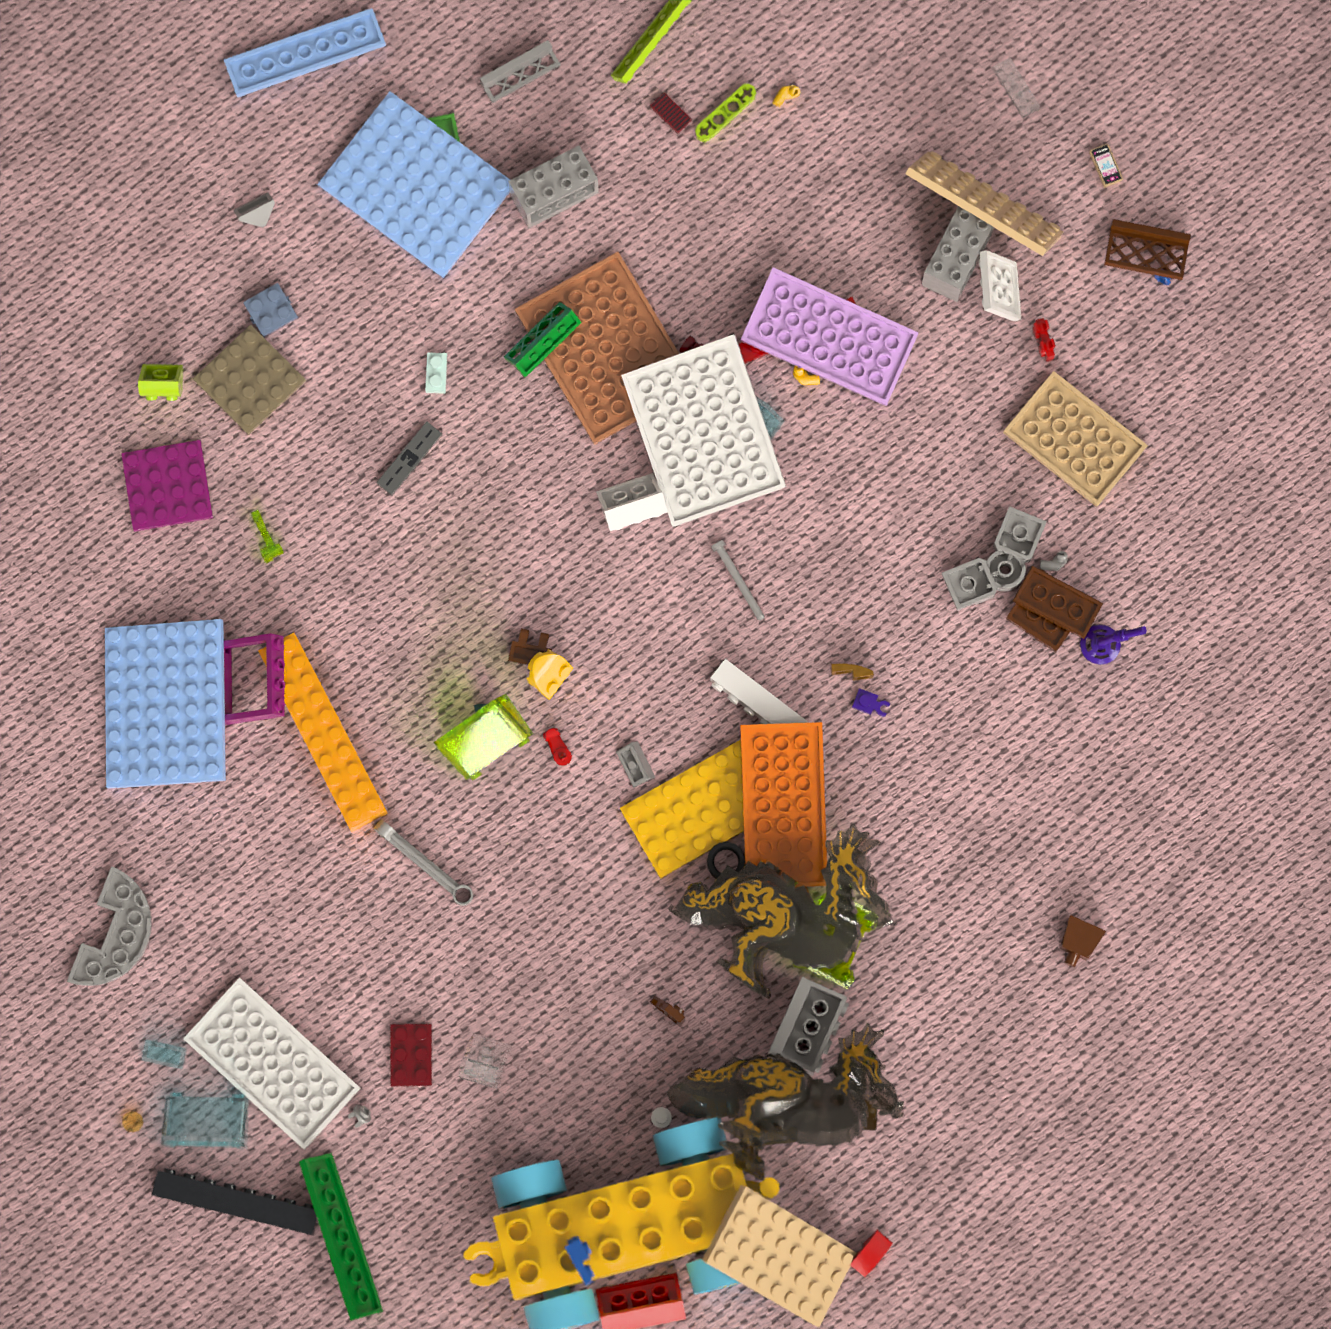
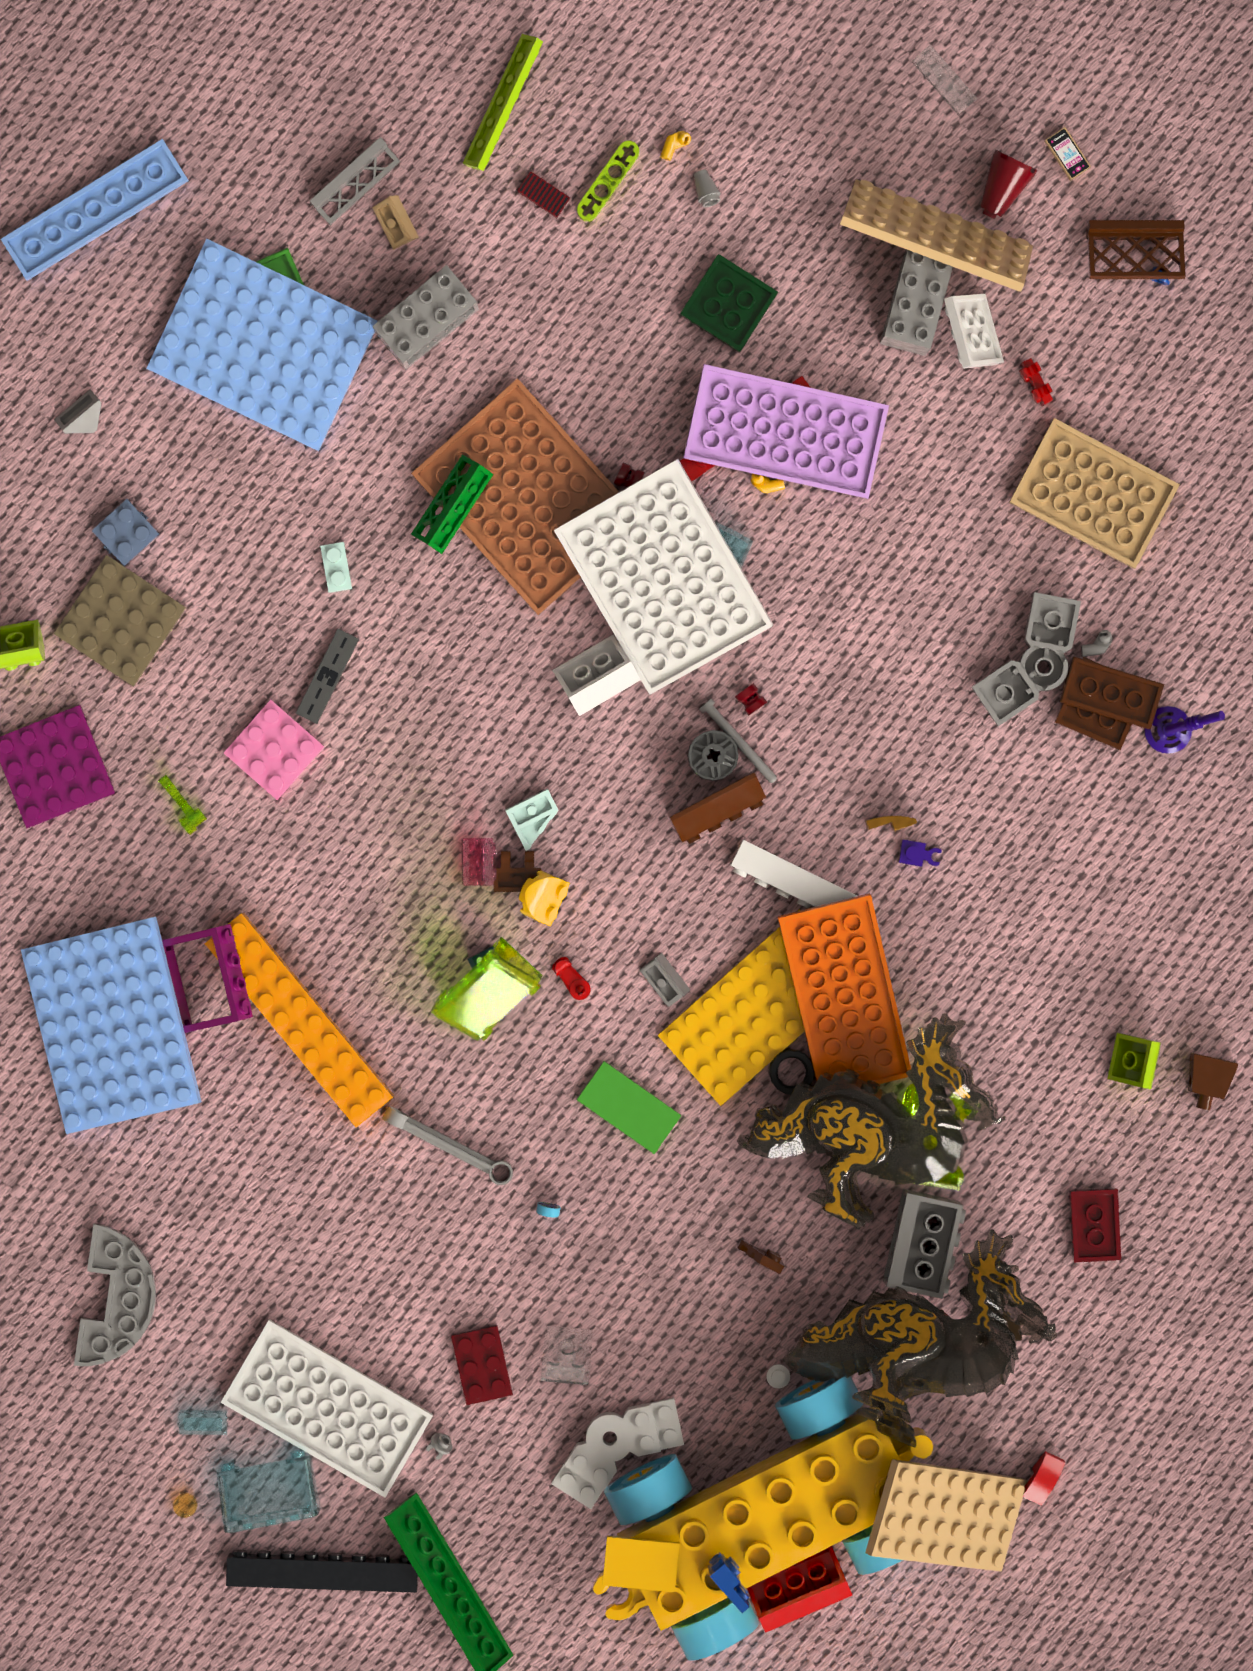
camera: 10 degrees left, 10 degrees up
(351, 509) = (274, 749): none -> bright pink plate
(496, 934) = (548, 1209): none -> medium azure tile
(500, 632) = (478, 861): none -> clear pink bracket
(508, 1233) = (641, 1563): none -> yellow tile
(533, 1138) = (640, 1430): none -> white plate
(545, 110) = (395, 221): none -> tan slope
(553, 606) = (532, 816): none -> light aqua wing
(582, 863) = (629, 1107): none -> bright green tile
(706, 593) = (700, 749): none -> dark grey wheel
(709, 628) = (717, 808): none -> reddish brown slope
(755, 547) = (755, 703): none -> dark red wheel
(804, 135) = (706, 189): none -> light grey cone
(804, 227) = (729, 303): none -> dark green plate
(958, 1045) = (1095, 1225): none -> dark red plate
(1018, 911) = (1134, 1060): none -> lime brick
(1049, 176) = (1004, 183): none -> dark red cone

